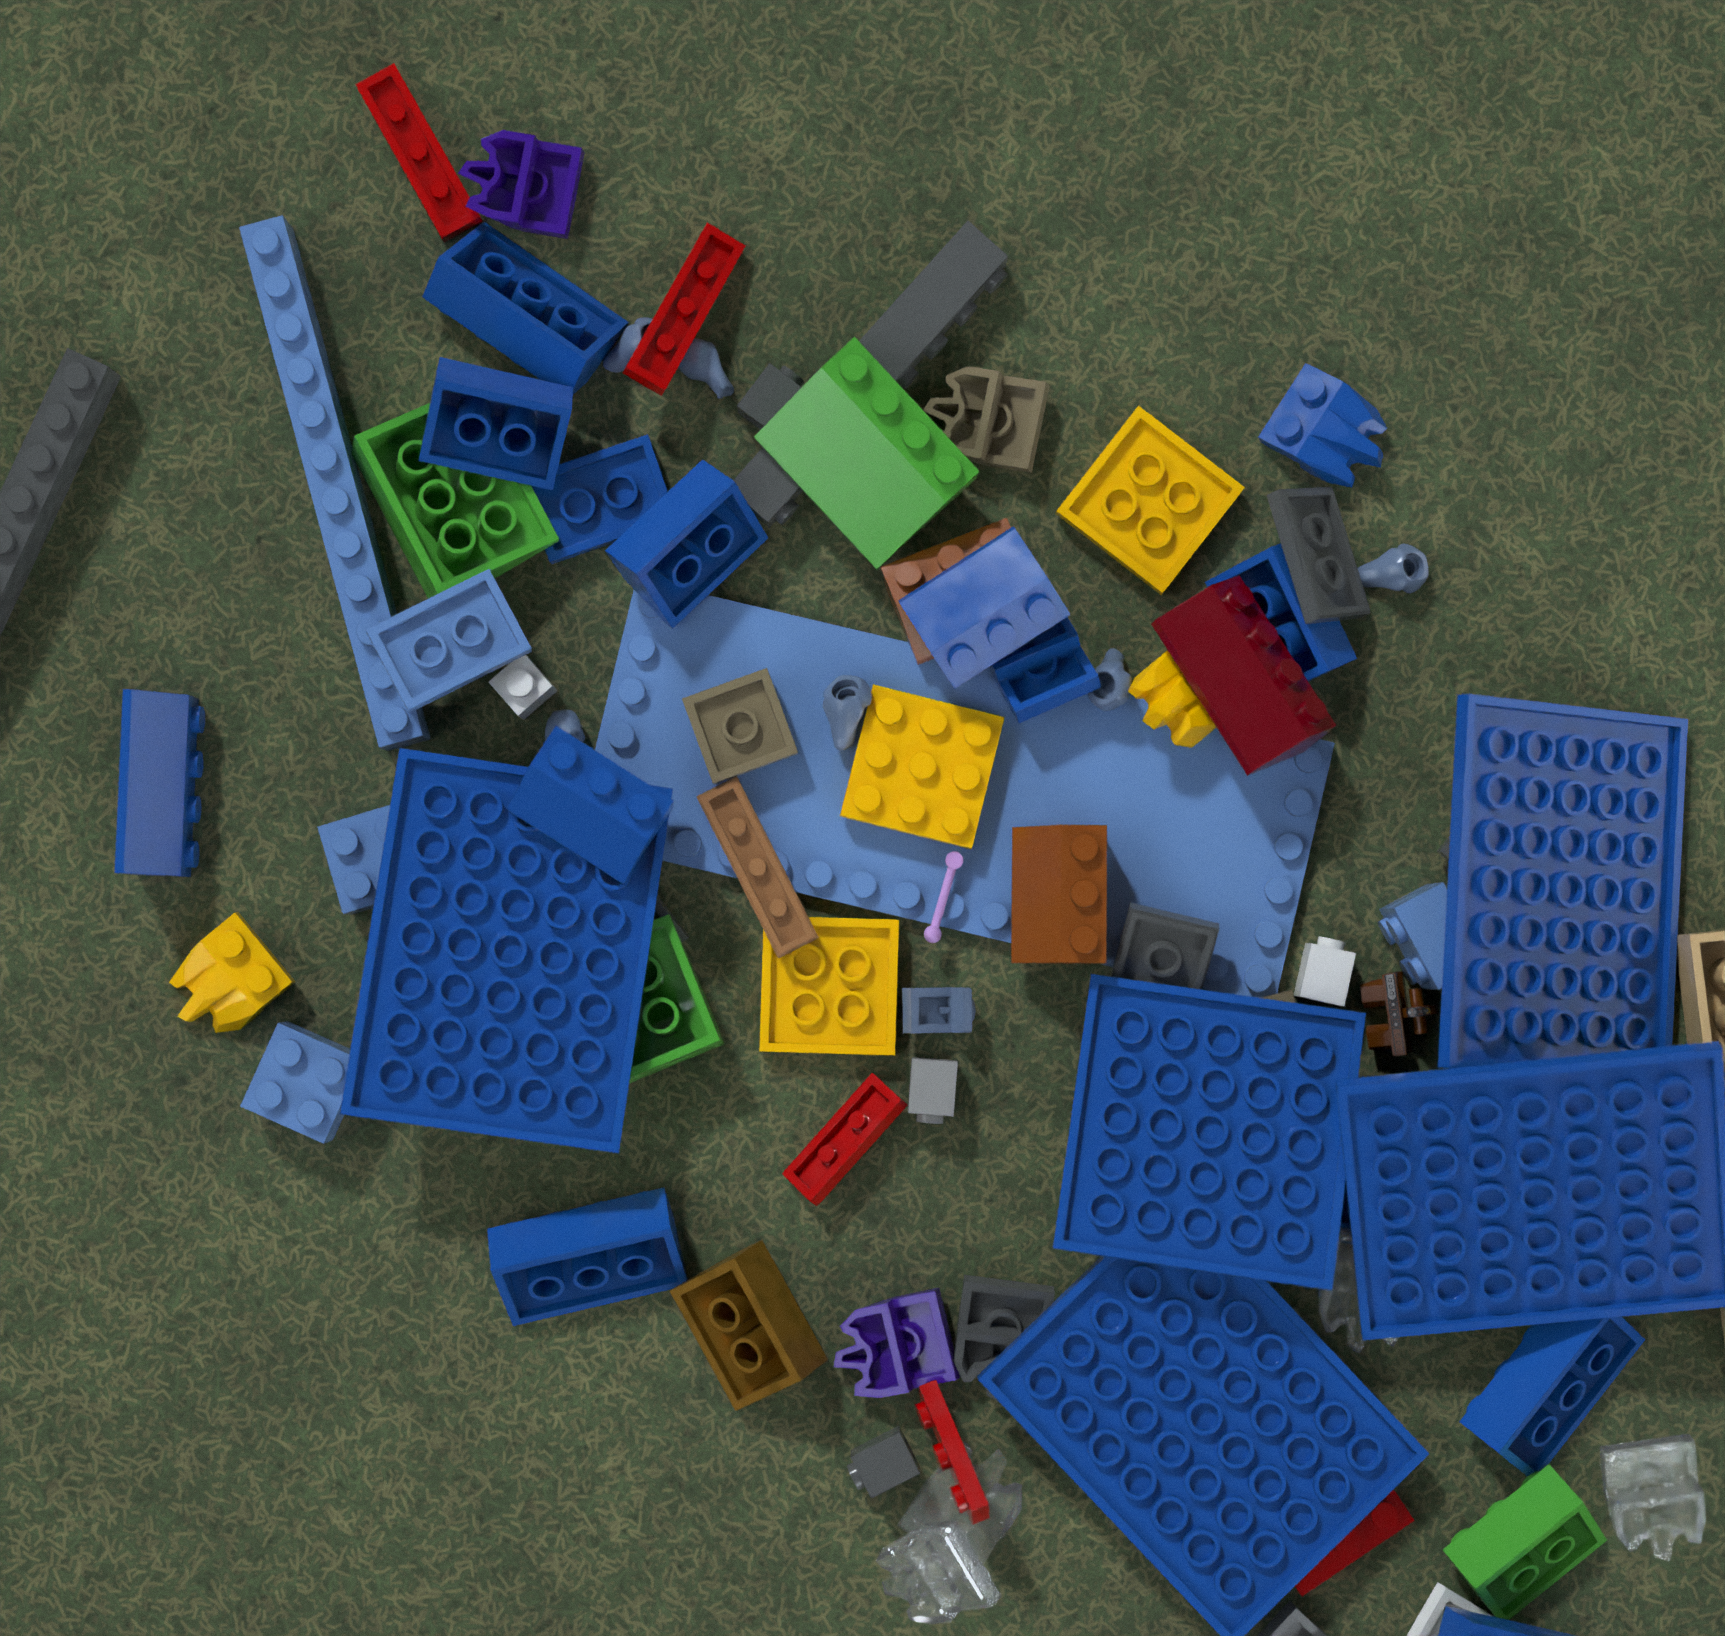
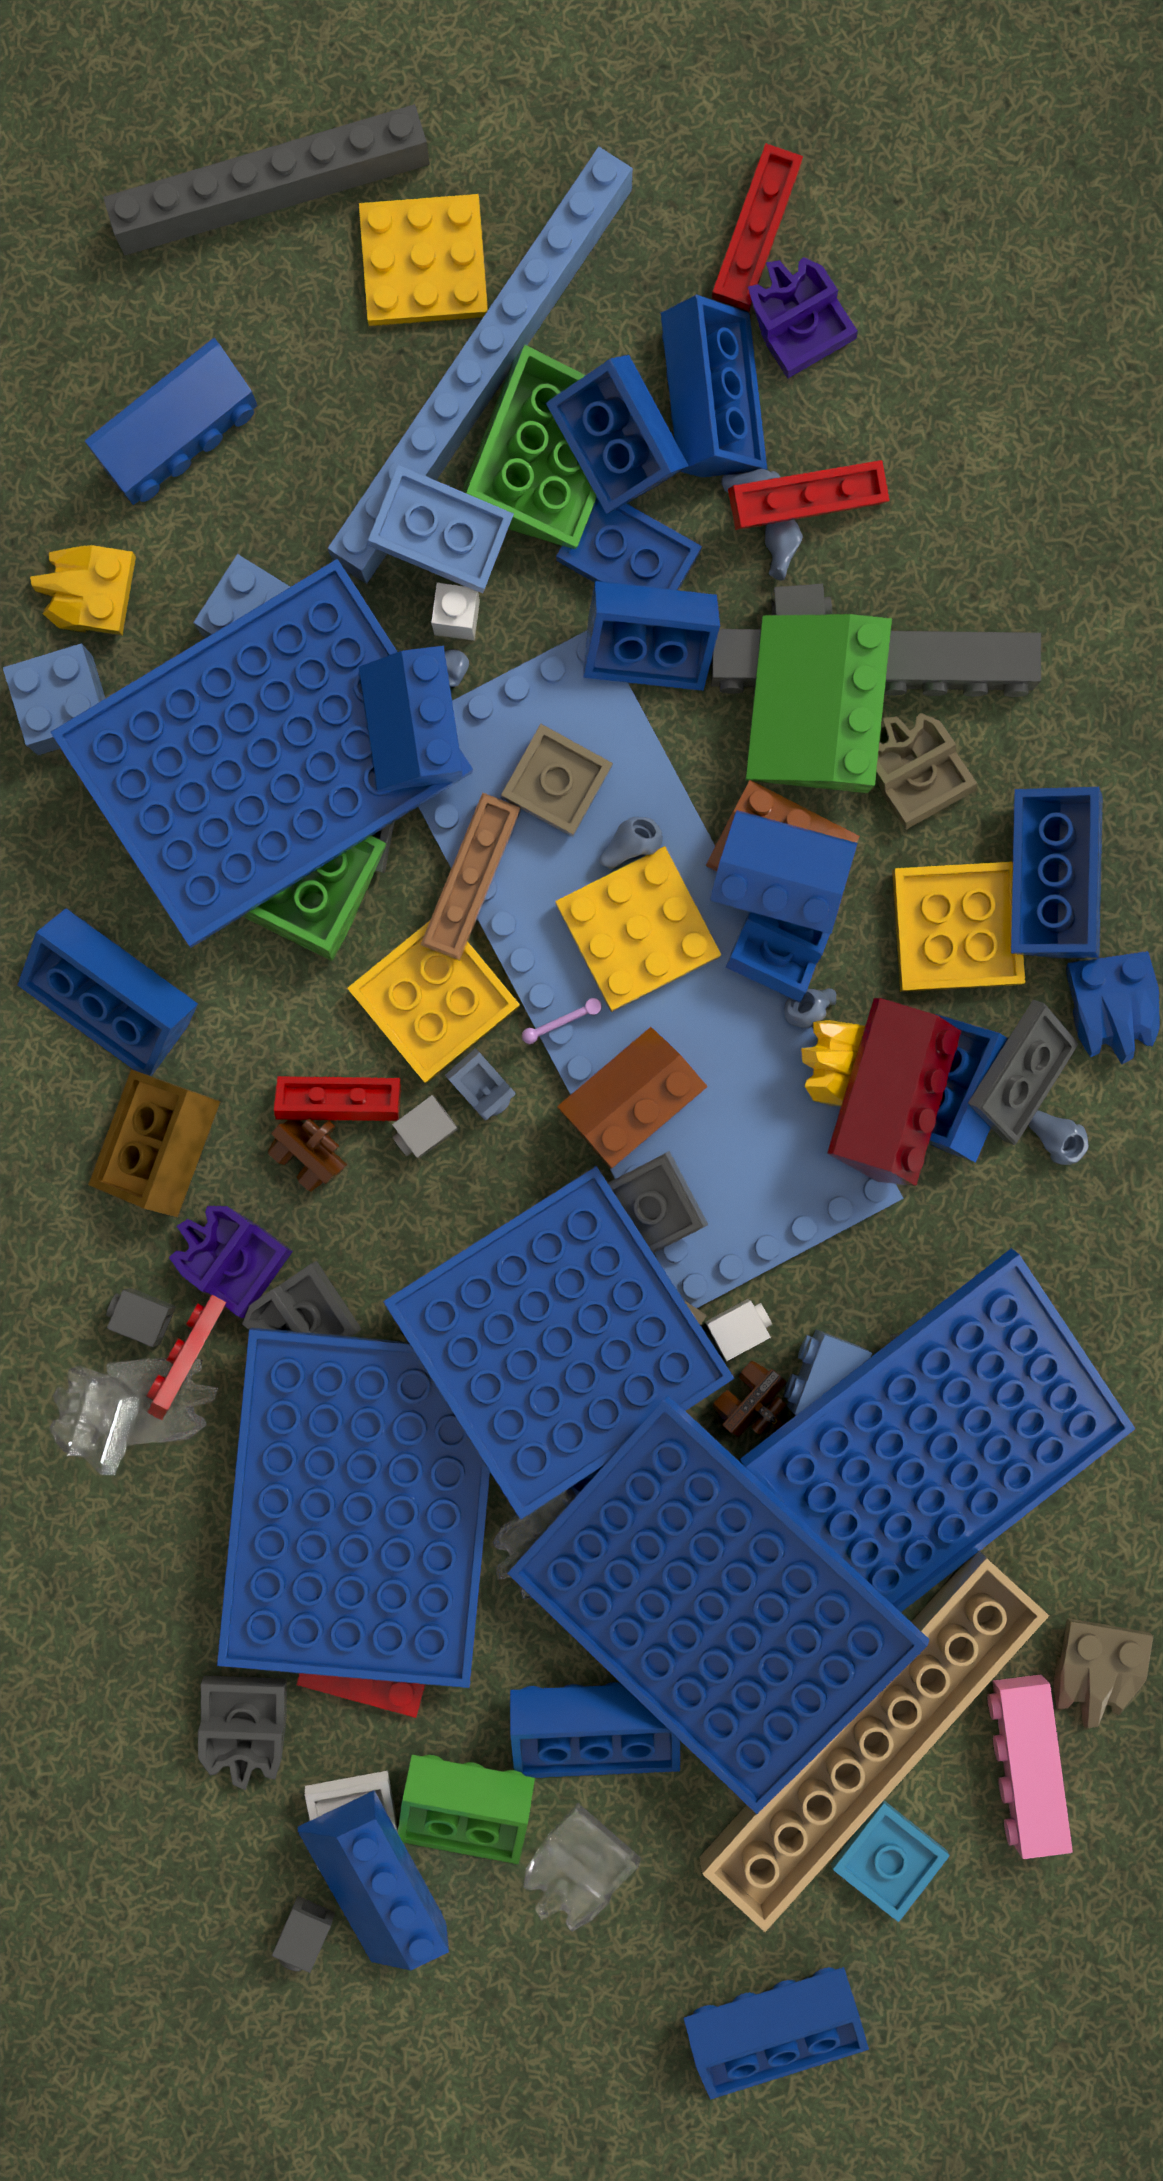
camera: 50 degrees right, 0 degrees up
(198, 452) = (423, 259): none -> yellow plate
(867, 1196) = (312, 1147): none -> reddish brown hips
(1177, 381) = (1057, 872): none -> blue slope

